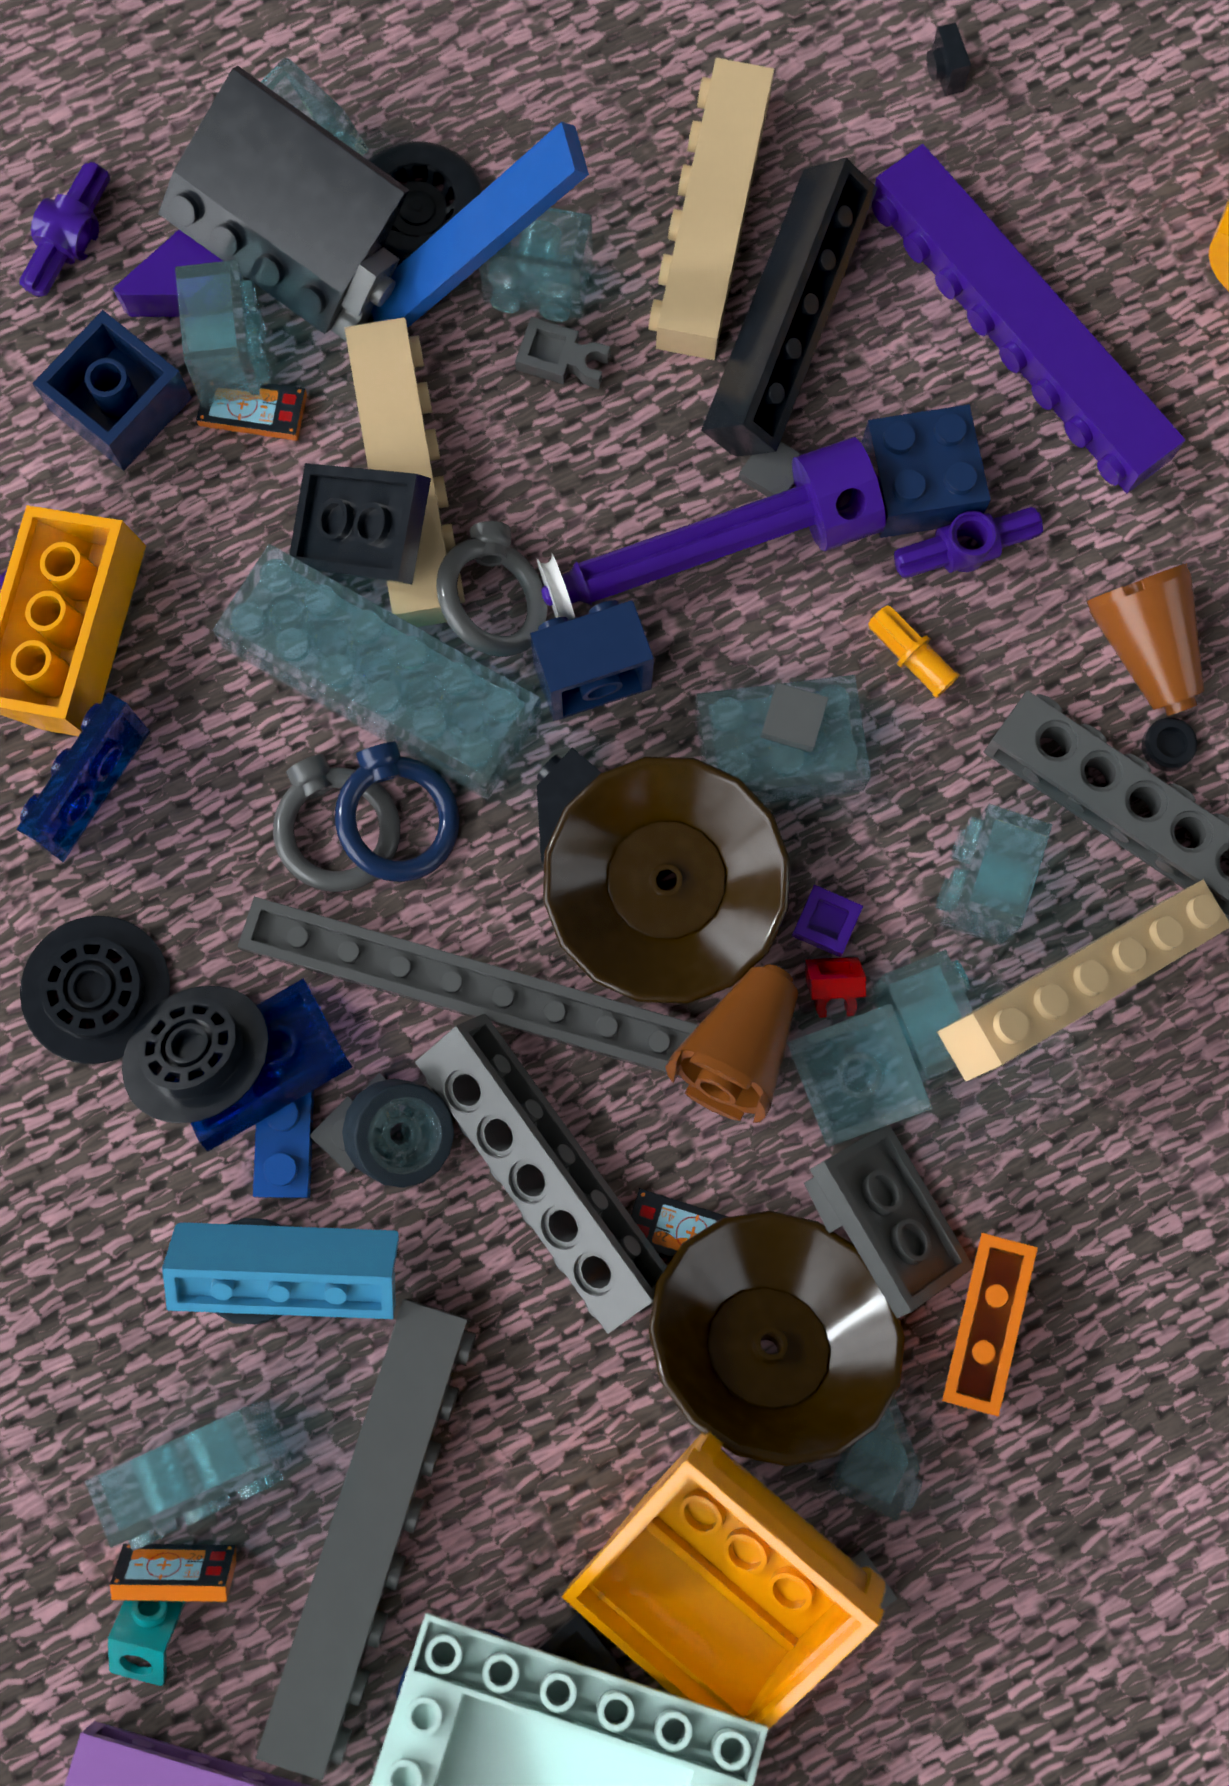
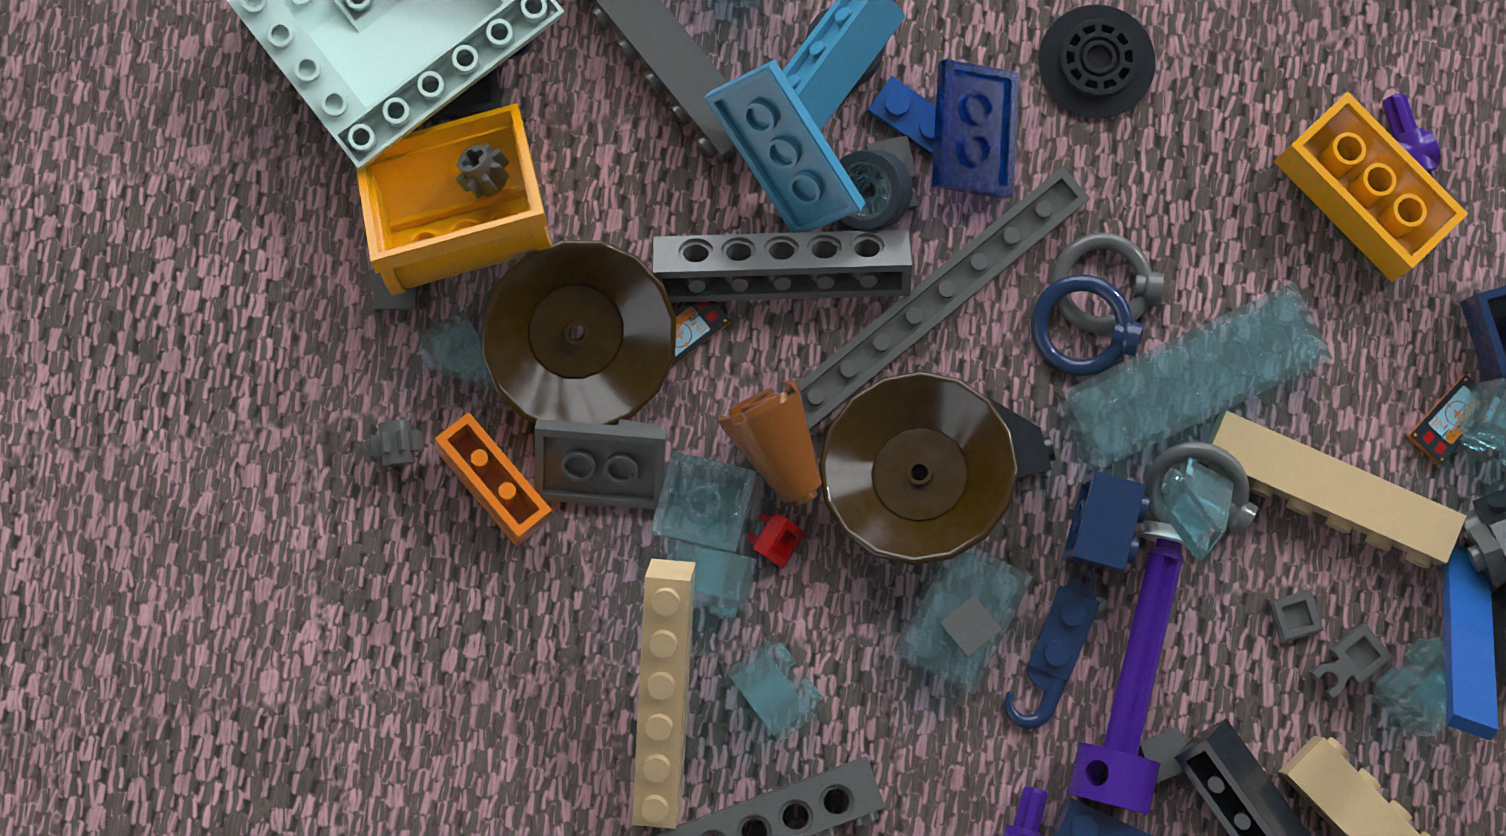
camera: 125 degrees right, 5 degrees up
(83, 777) = (1244, 134): clear blue plate -> none
(188, 1044) = (1020, 90): black wheel -> none
(360, 521) = (1308, 428): black plate -> none
(417, 1252) = (784, 149): none -> dark azure tile
(515, 573) = (1197, 505): none -> clear light blue slope
(551, 433) = (1295, 616): none -> dark grey tile
(665, 1581) = (482, 170): none -> dark grey gear
(743, 635) = (1057, 648): none -> dark blue plate
(827, 921) = (820, 563): dark purple plate -> none
(912, 650) = (968, 756): light orange axle -> none
(1024, 1461) = (396, 443): none -> dark grey gear

